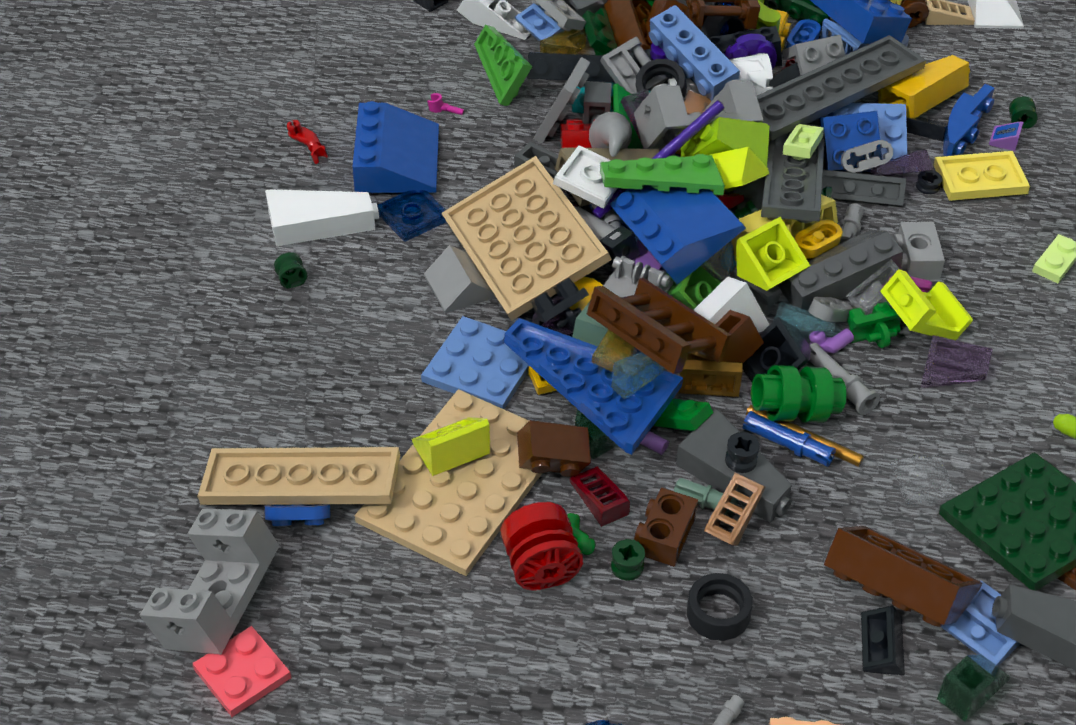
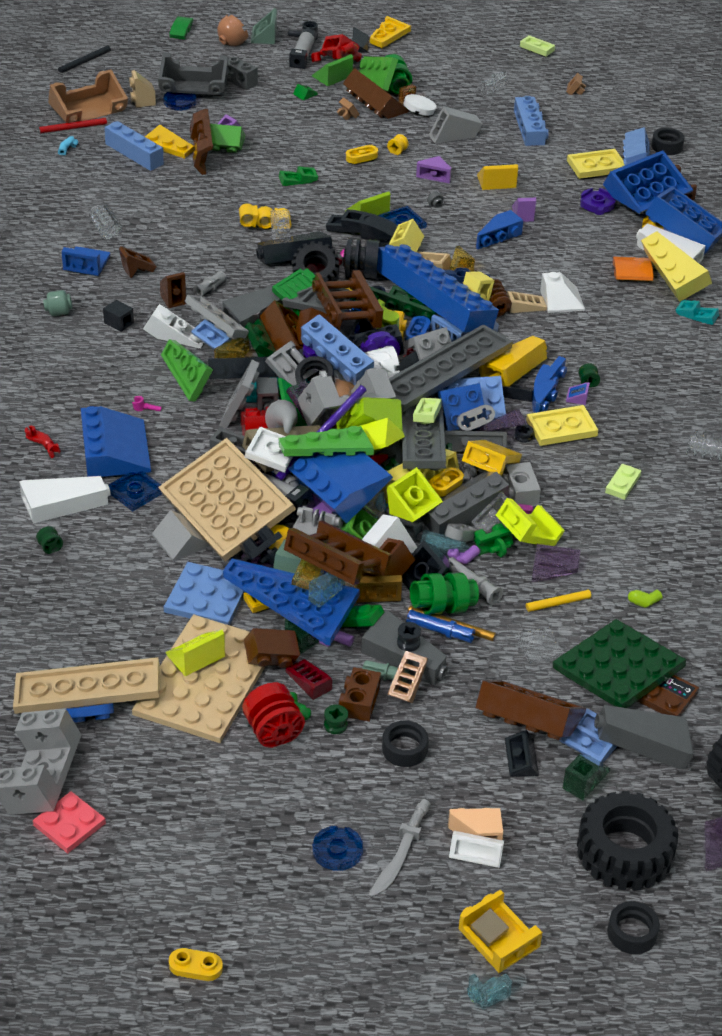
camera: 10 degrees left, 5 degrees down
(880, 209) = (489, 456): none -> yellow panel
(955, 417) = (559, 600): none -> yellow bar

